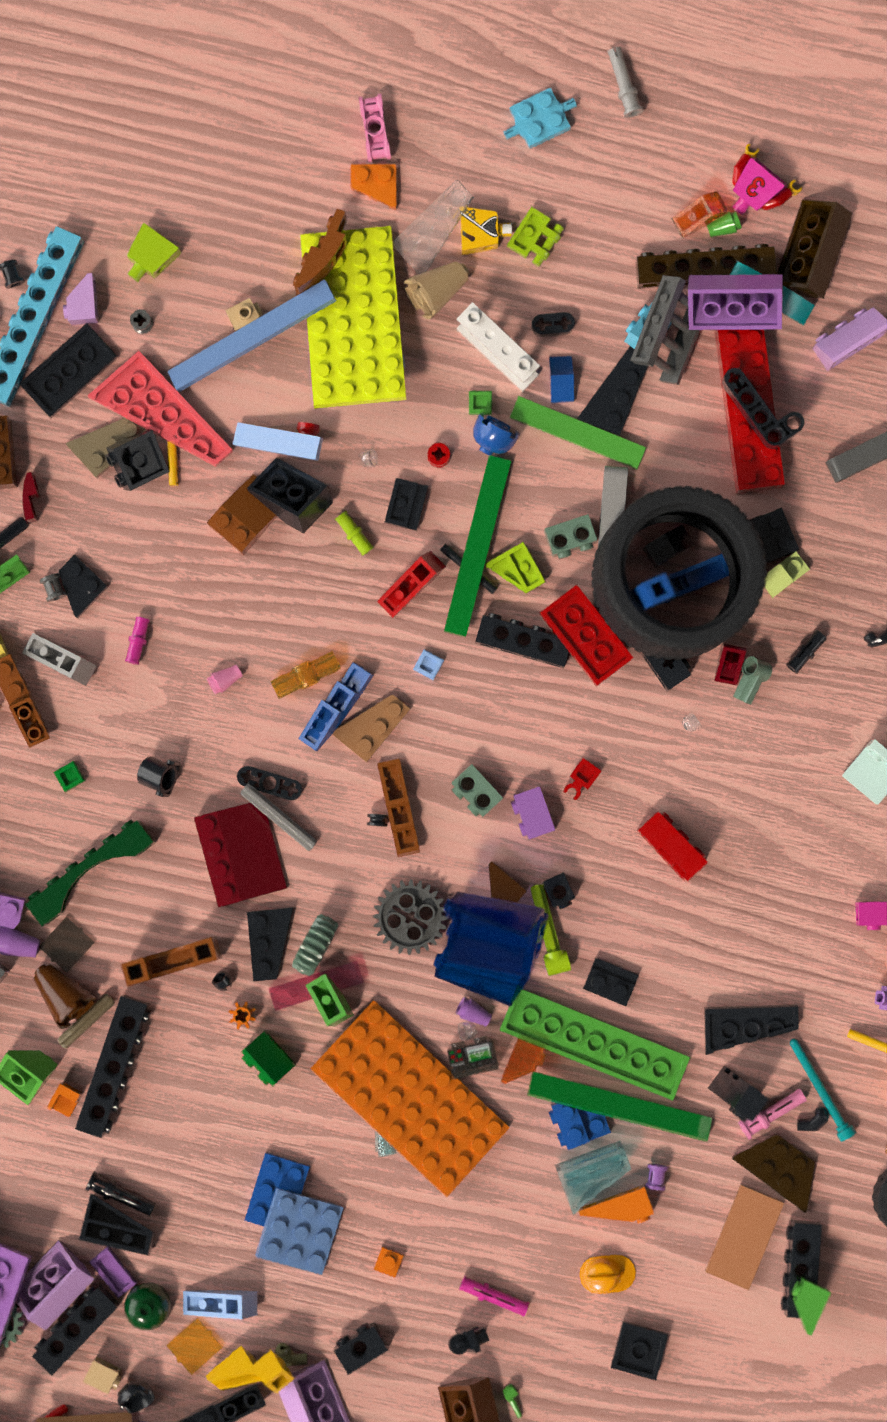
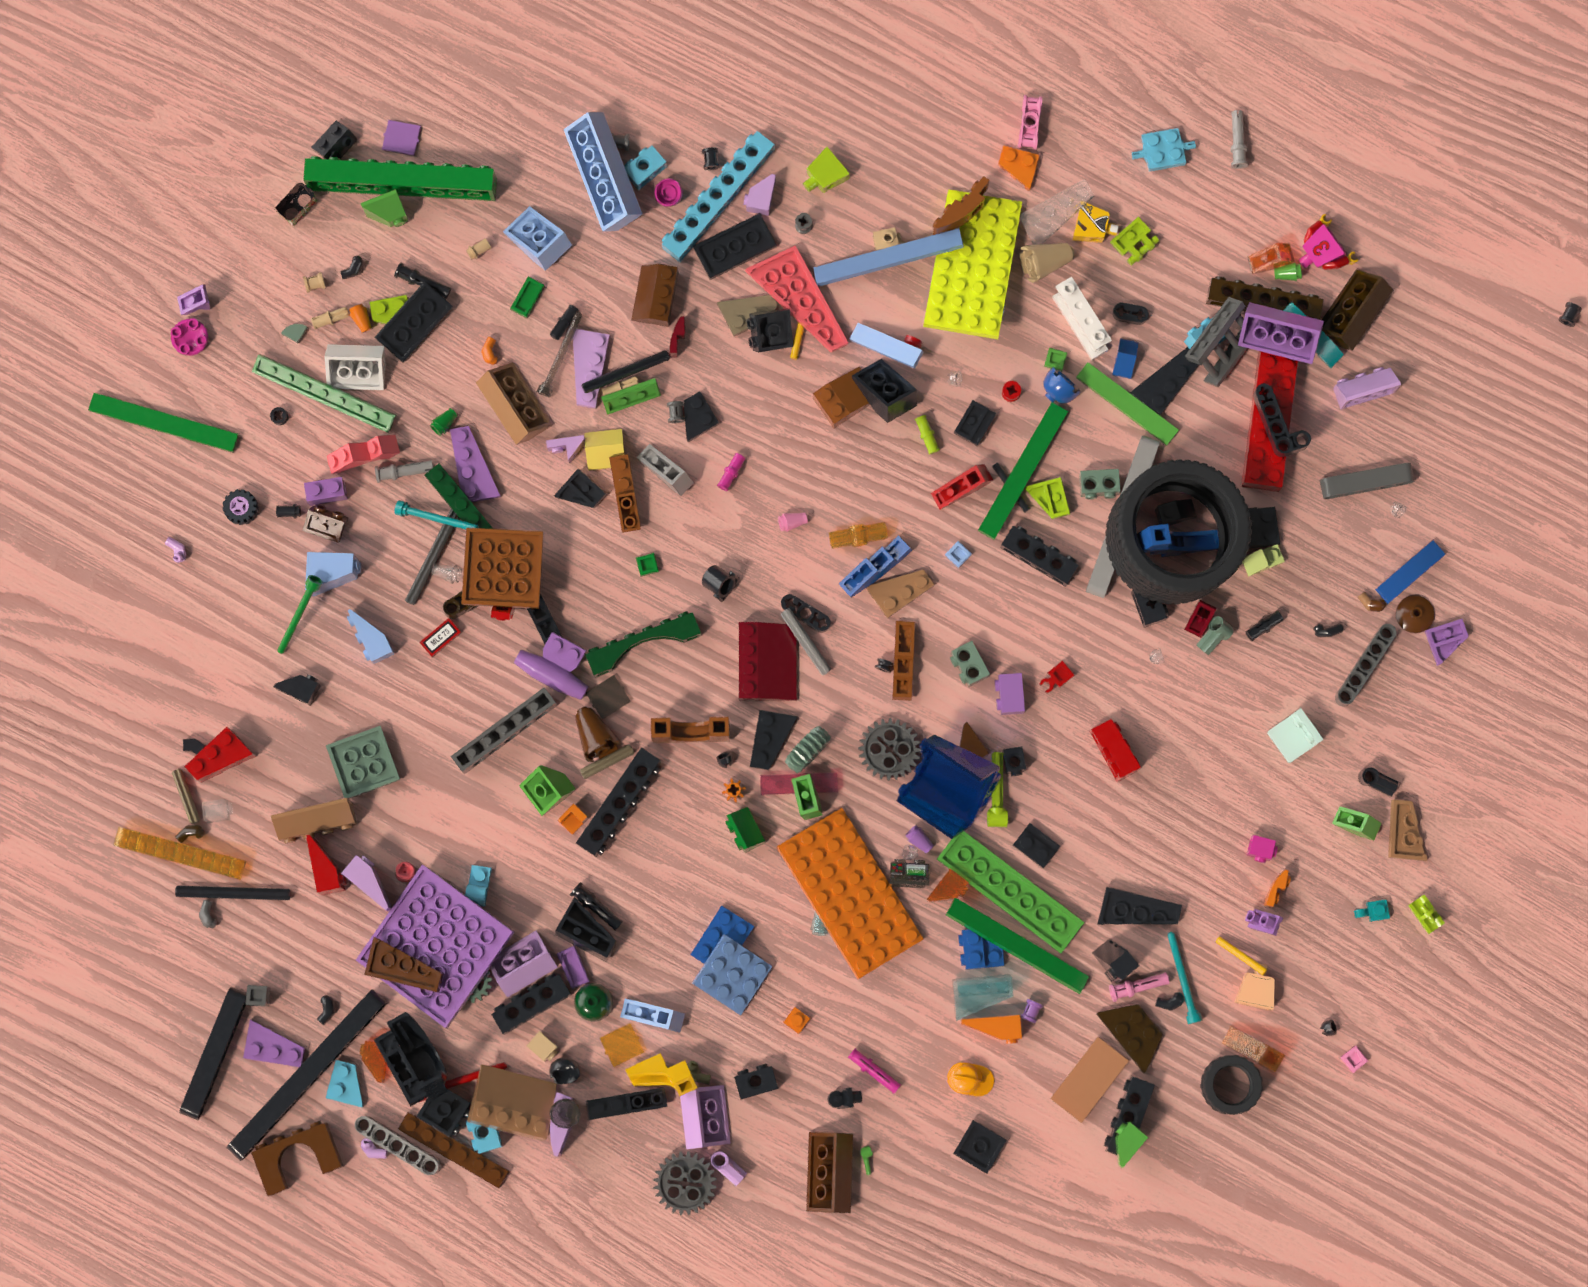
camera: 10 degrees right, 5 degrees down
(586, 635) = (1091, 563): red plate -> none

